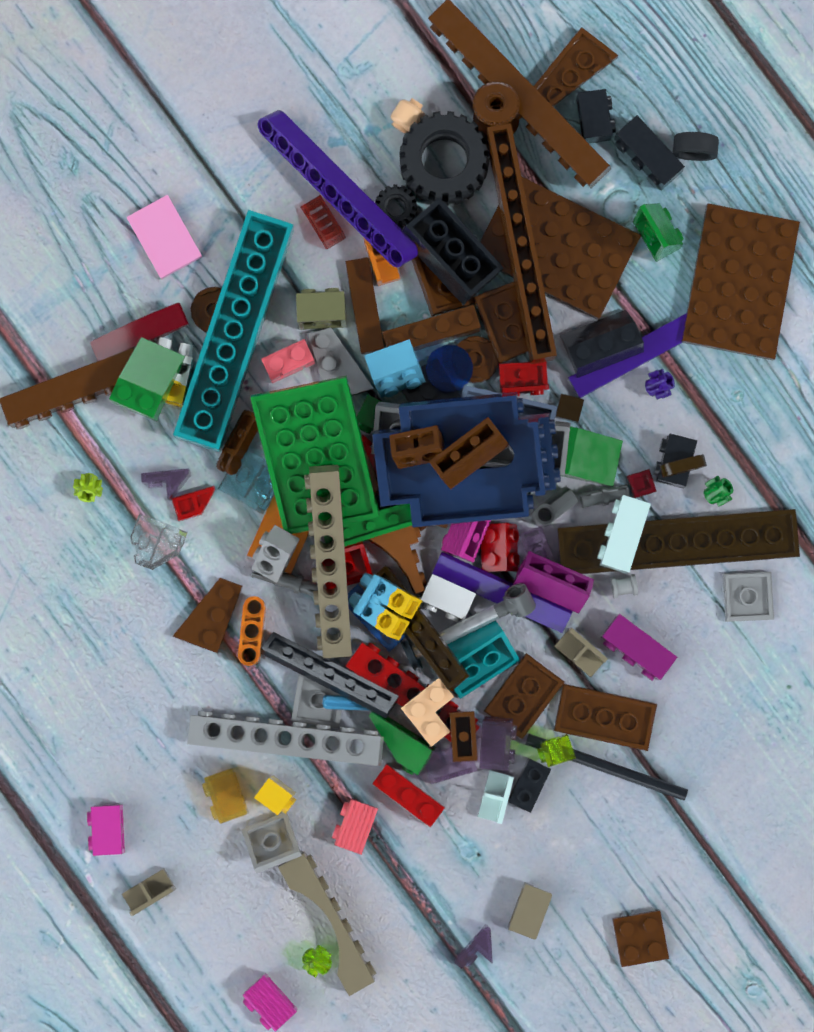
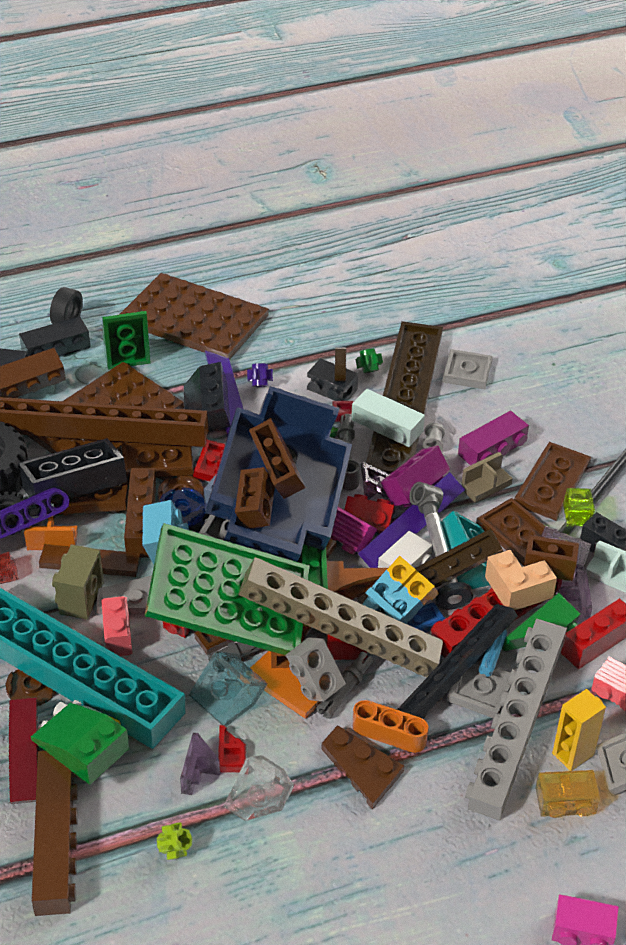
camera: 75 degrees left, 40 degrees down
(238, 443) = (180, 680): reddish brown hinge -> none

